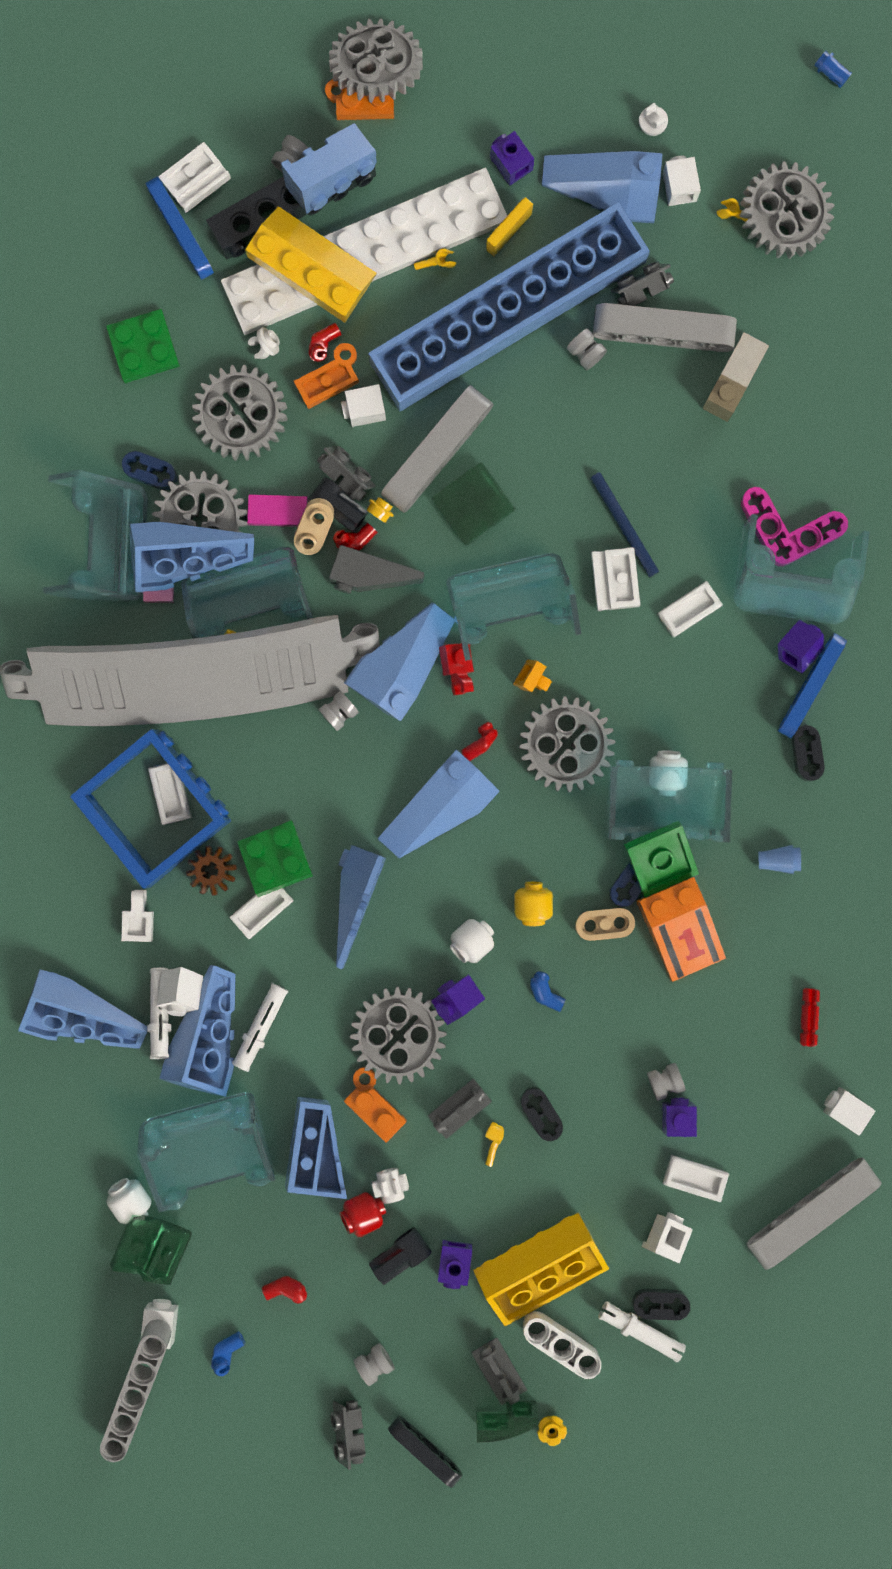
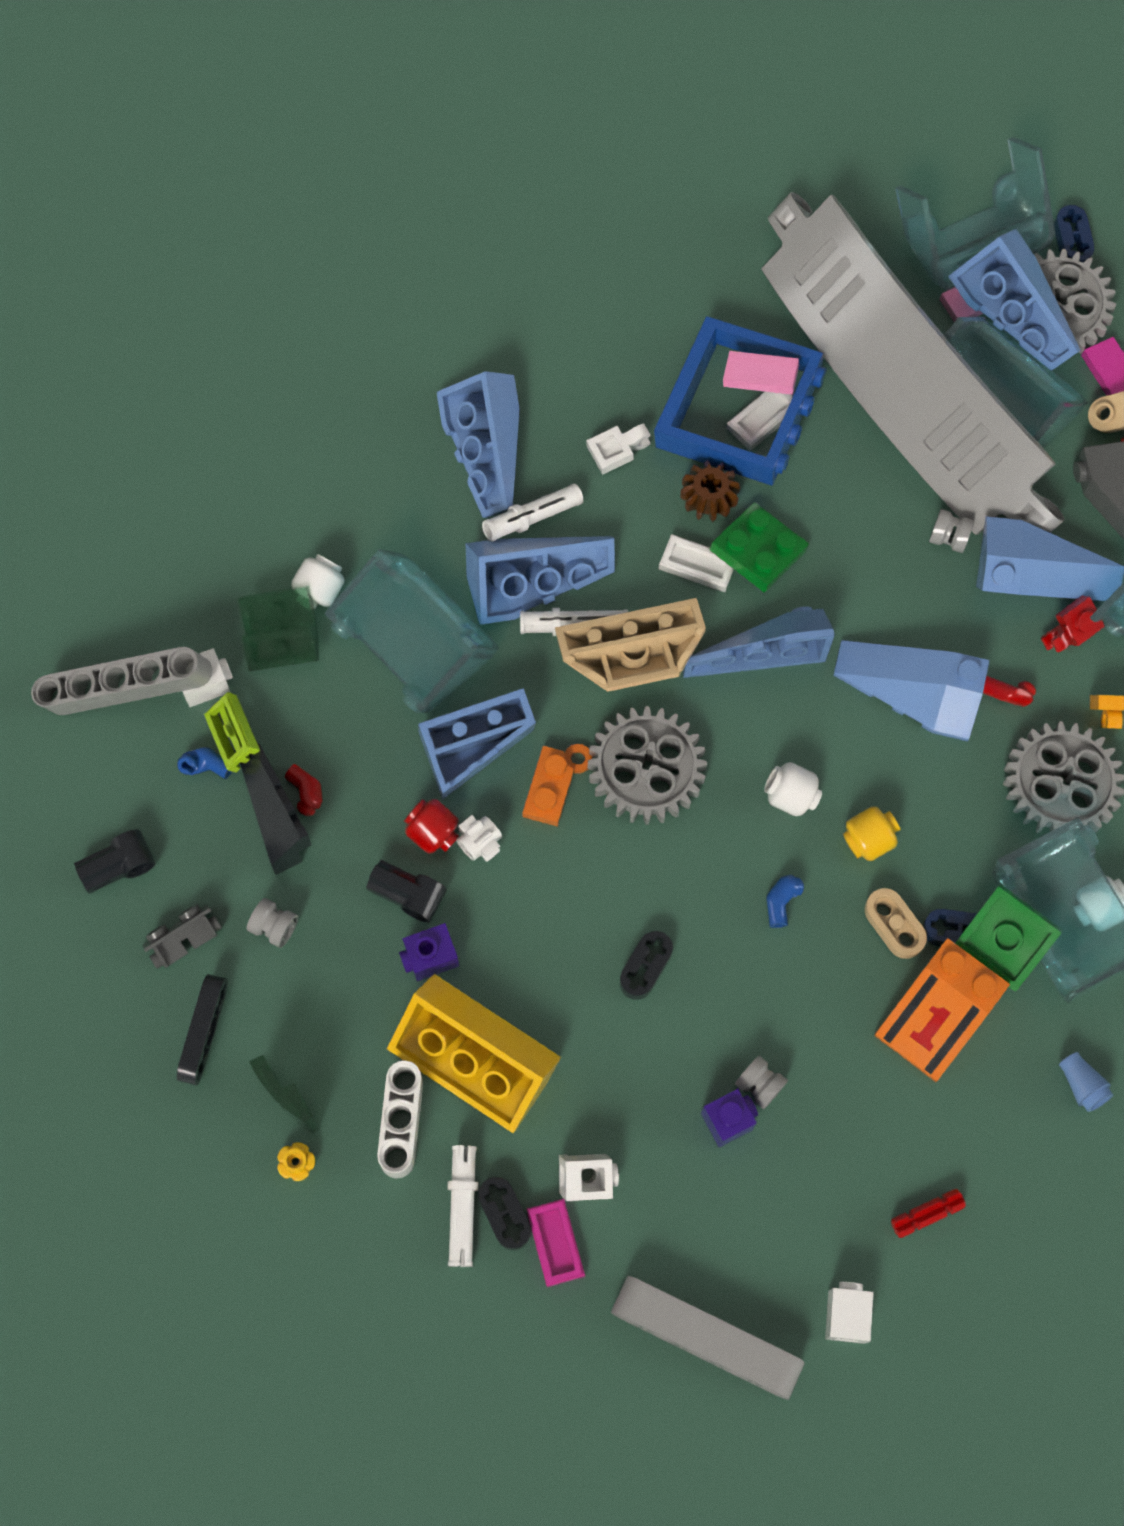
camera: 60 degrees right, 15 degrees down
(142, 785) = (761, 372): none -> bright pink tile
(179, 991) = (568, 518): white brick -> none
(215, 1325) = (235, 727): none -> lime tile
(269, 1448) = (125, 857): none -> black piece
(307, 1327) = (275, 813): none -> black wedge
(308, 1001) = (633, 645): none -> tan wedge
(457, 999) = (722, 803): dark purple brick -> none
(459, 1108) = (602, 873): dark grey hinge -> none
(495, 1133) = (596, 928): yellow hand -> none
(499, 1372) = (333, 1067): dark grey hinge -> none
(695, 1178) = (669, 1178): white tile -> none
(698, 1280) = (555, 1243): none -> dark pink tile

